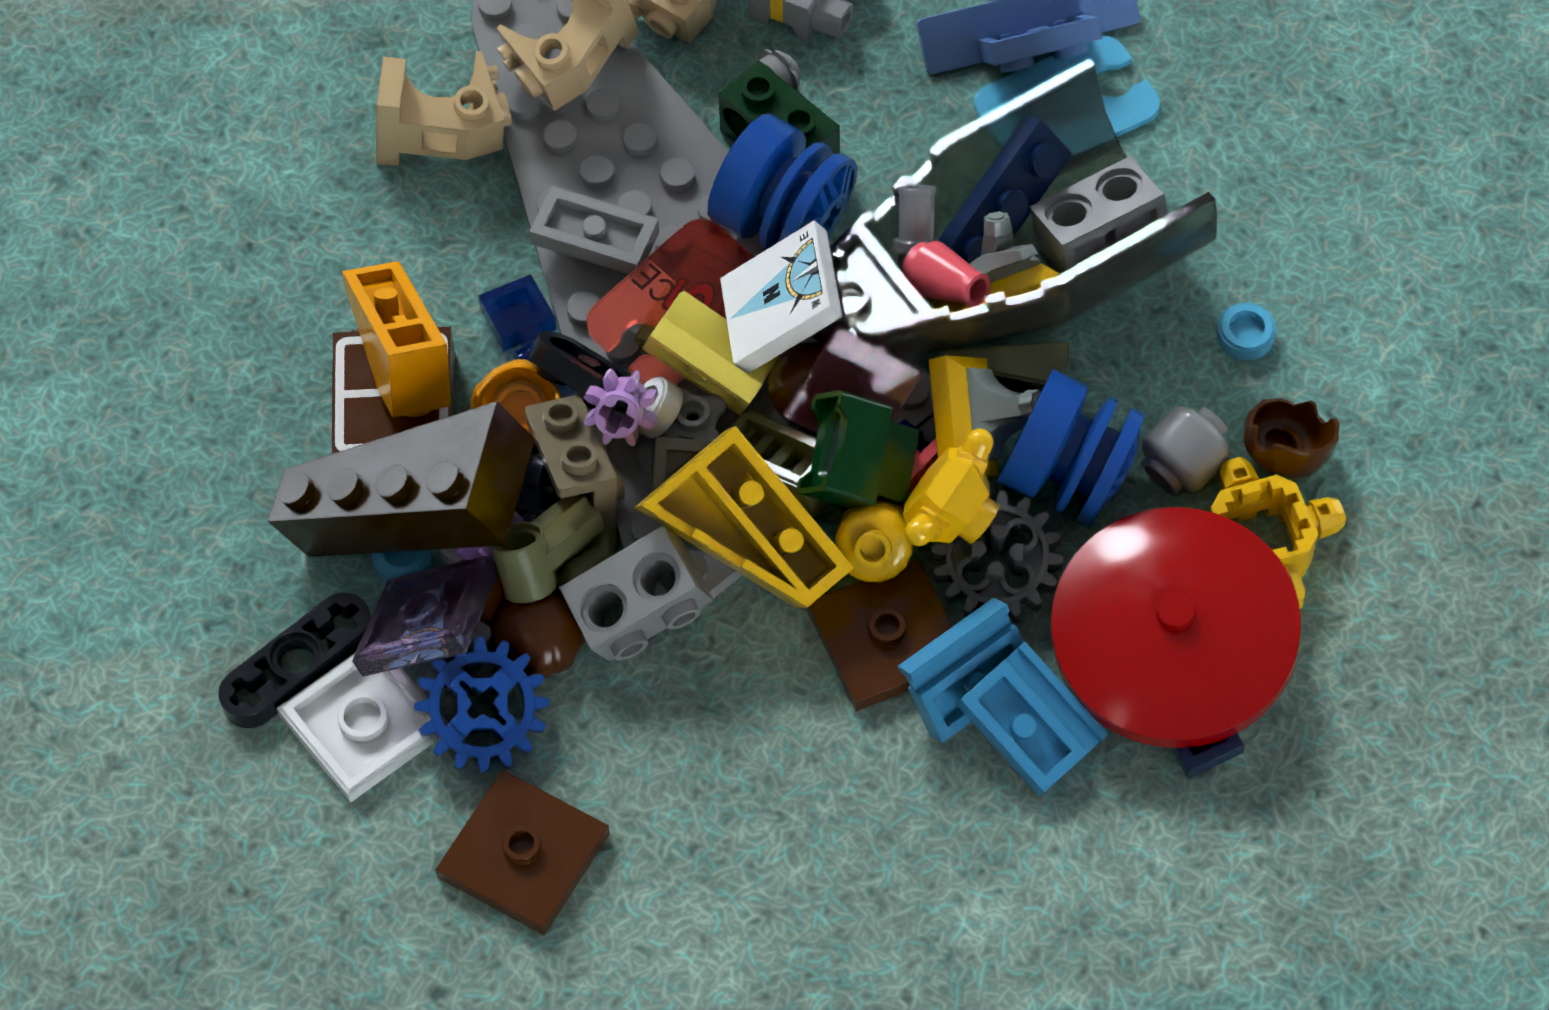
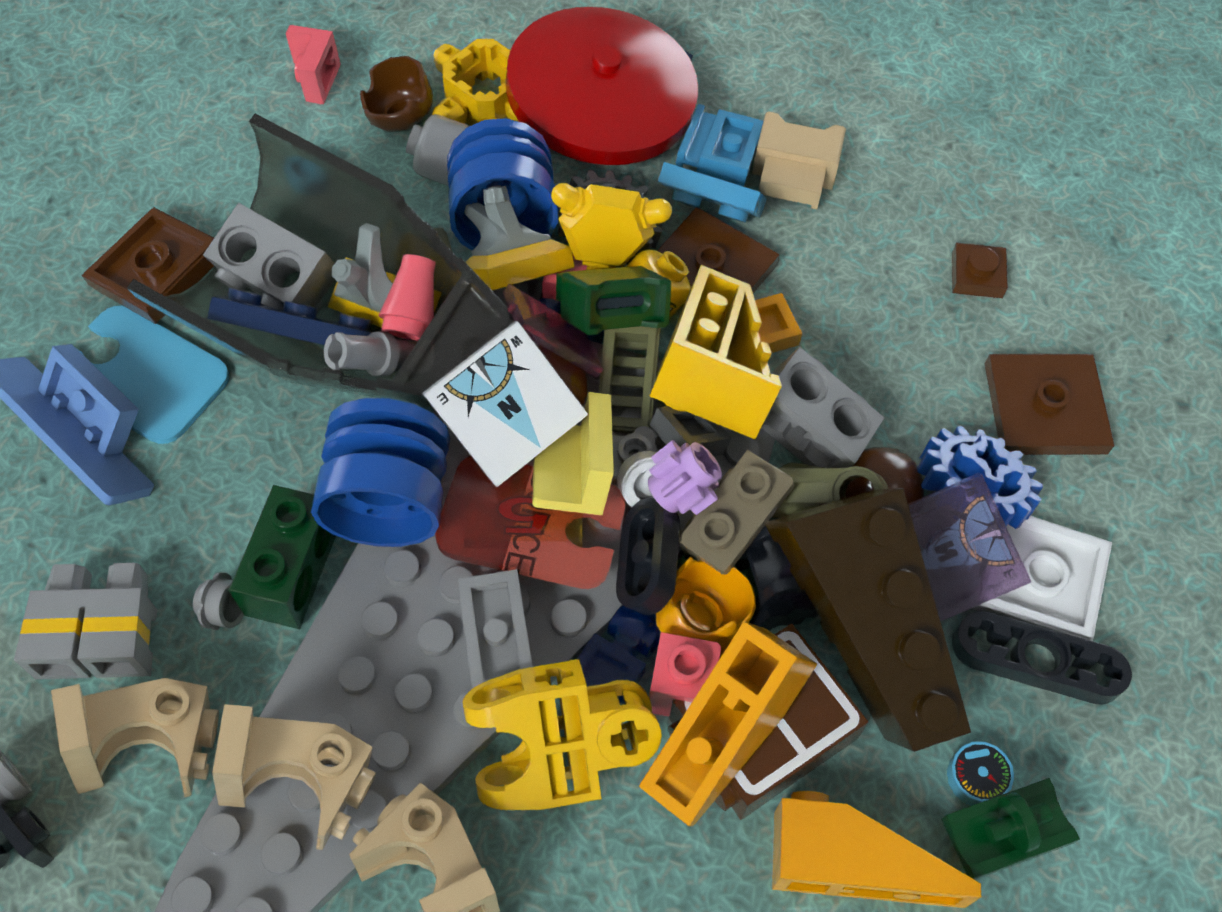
camera: 125 degrees left, 0 degrees up
(182, 519) = (1009, 829): none -> dark green hips
(242, 547) = (979, 773): none -> tile
(247, 404) = (847, 854): none -> light orange slope
(474, 346) = (680, 670): none -> coral bracket
(481, 236) = (592, 728): none -> yellow piece
(716, 898) = (979, 270): none -> reddish brown plate
(776, 637) = (778, 323): none -> light orange plate
(966, 790) = (797, 159): none -> tan piece
(1186, 145) = (156, 253): none -> reddish brown plate
(1390, 387) = (314, 60): none -> coral bracket

